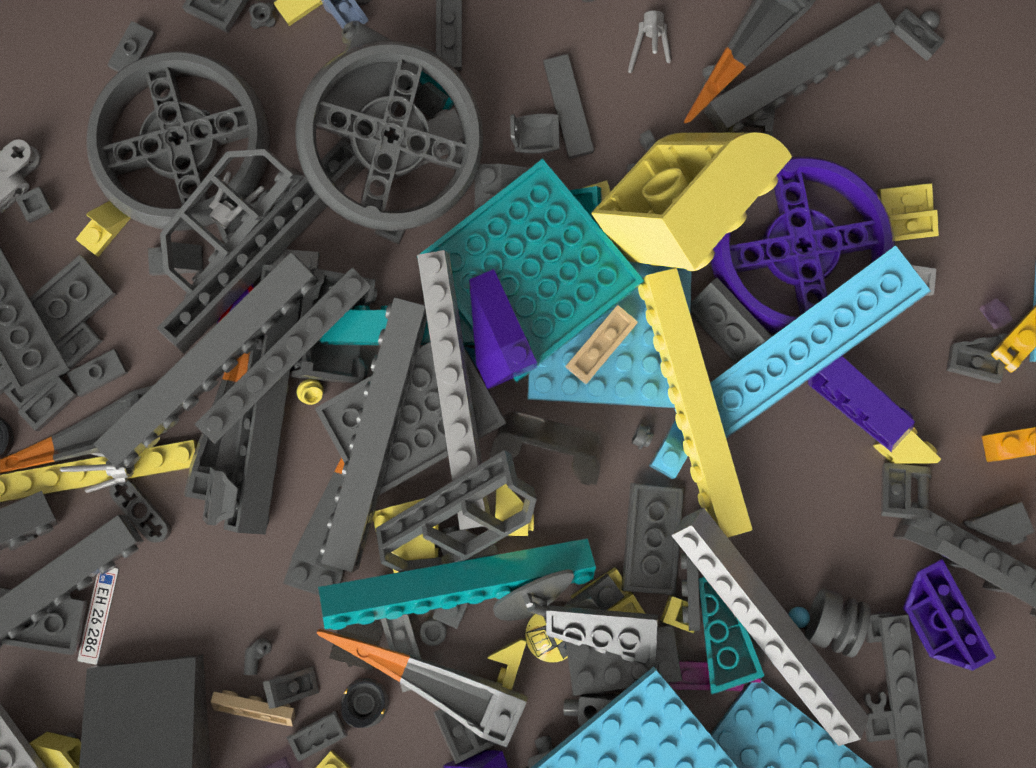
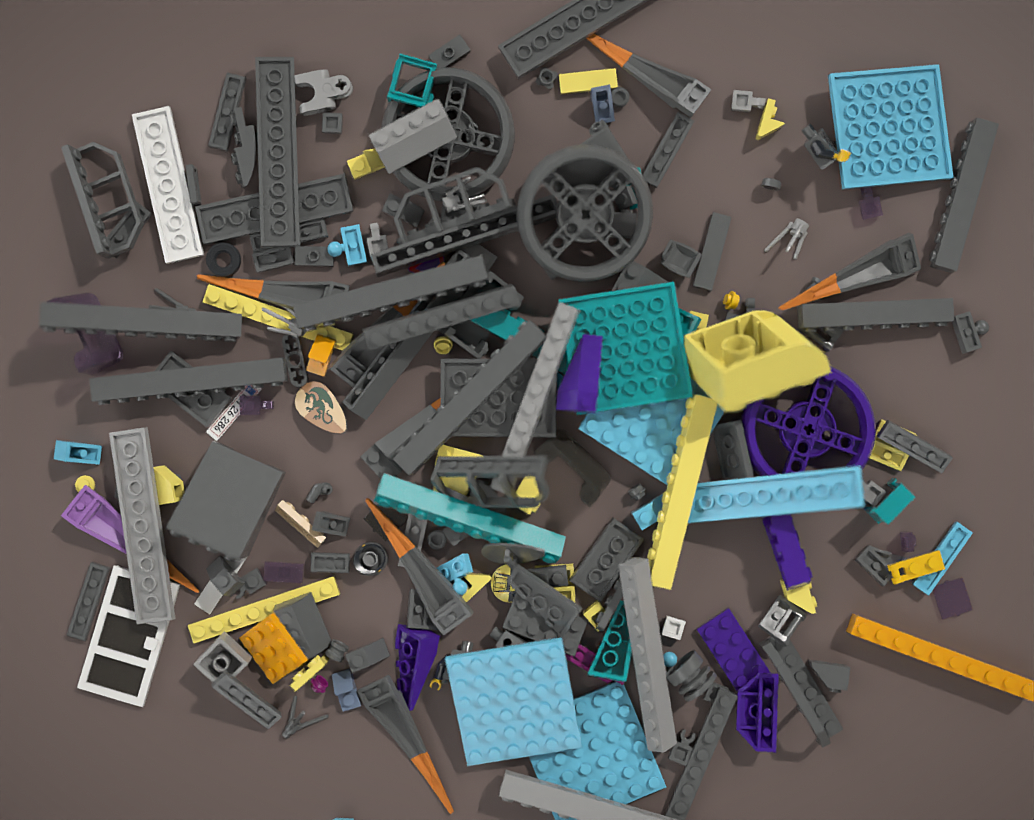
camera: 30 degrees right, 5 degrees up
(117, 594) = (251, 405): none -> clear purple plate
(128, 112) = (406, 98): none -> teal piece
(132, 159) = (413, 136): none -> light grey slope
(135, 335) = (351, 245): none -> medium azure plate
(160, 310) = (376, 242): none -> light grey plate
(167, 486) = (320, 355): none -> light orange slope
(202, 551) = (321, 407): none -> shield
(220, 497) = (351, 382): dark grey slope -> none
(476, 658) = (455, 570): none -> medium azure plate
(601, 344) = (643, 421): tan plate -> none
(623, 149) = (731, 300): none -> yellow plate
(780, 575) = (673, 627): none -> white plate
(866, 561) = (732, 648): none -> dark purple plate
(937, 196) = (914, 446): none -> dark grey plate
(957, 278) = (892, 504): none -> teal piece

